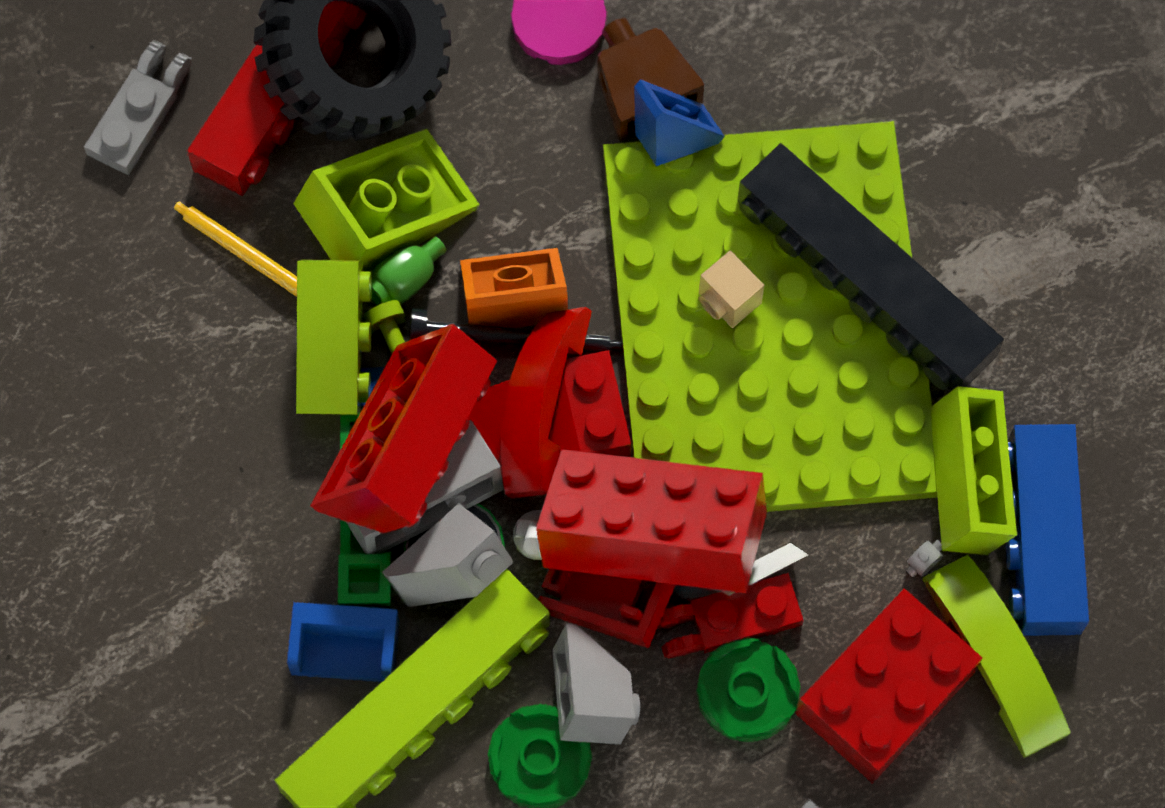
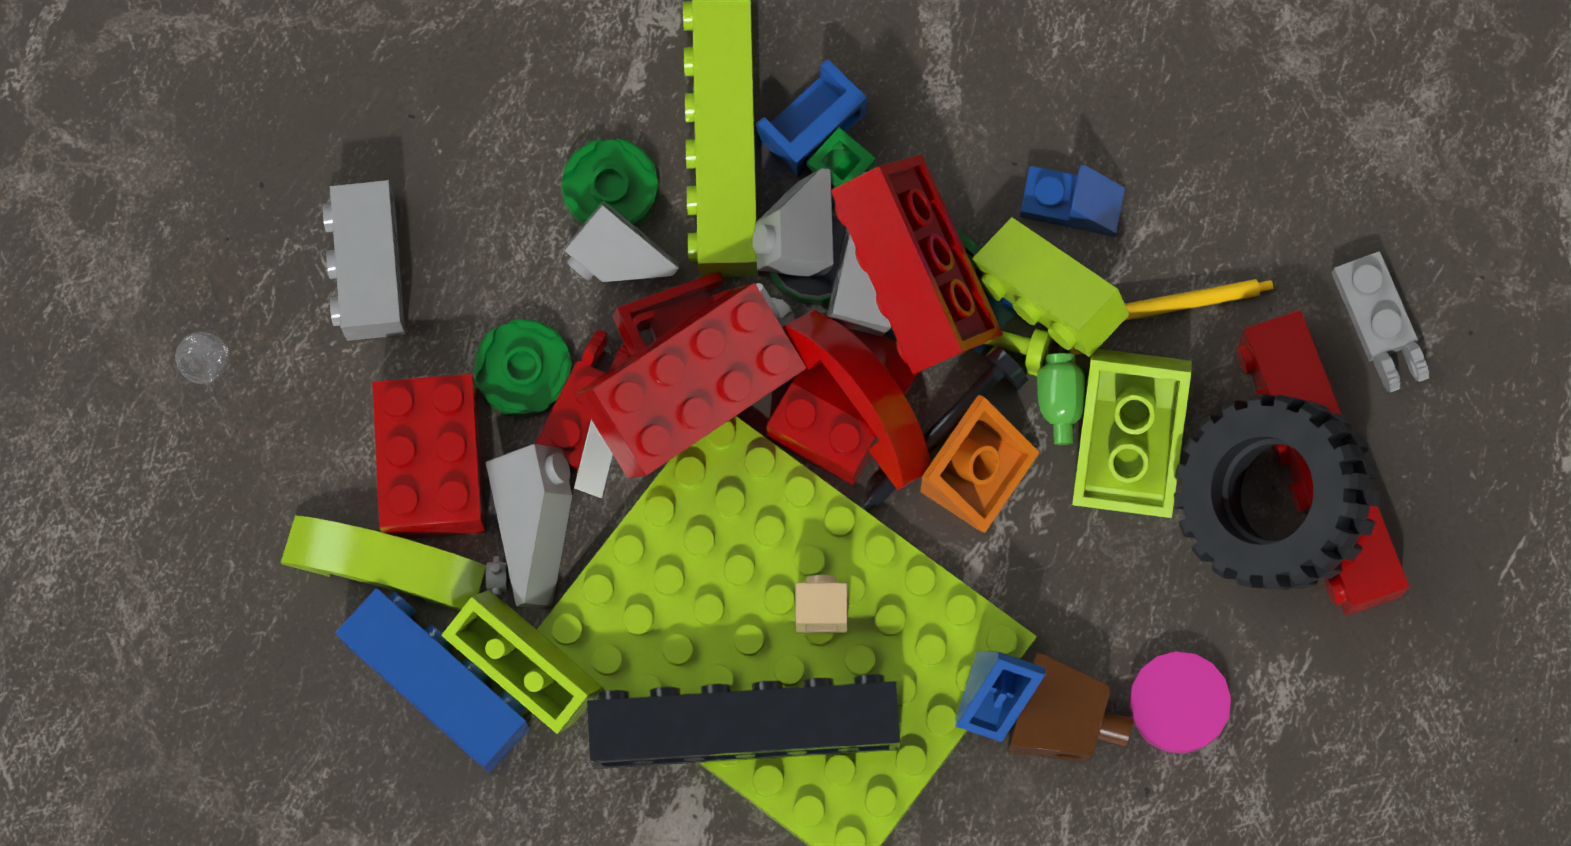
camera: 135 degrees right, 5 degrees up
(237, 399) = (1073, 201): none -> blue slope
(851, 573) = (532, 514): none -> light grey slope

